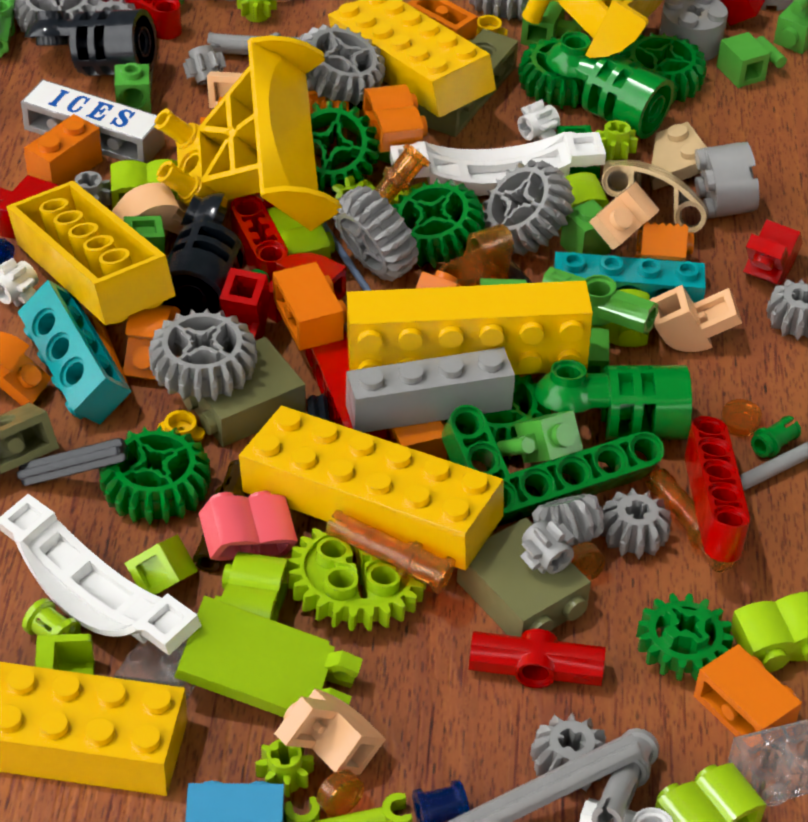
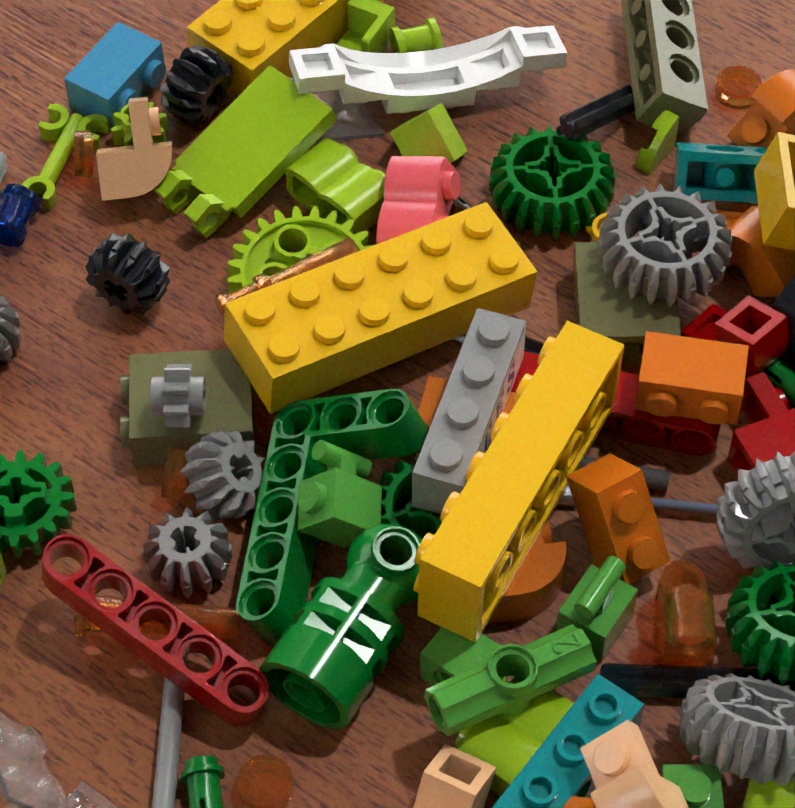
camera: 125 degrees right, 10 degrees up
(70, 431) = (662, 144): none -> lime tile
(216, 738) = (196, 85): none -> black gear
(448, 672) = (127, 273): none -> black gear
(537, 658) = (95, 369): red piece -> none

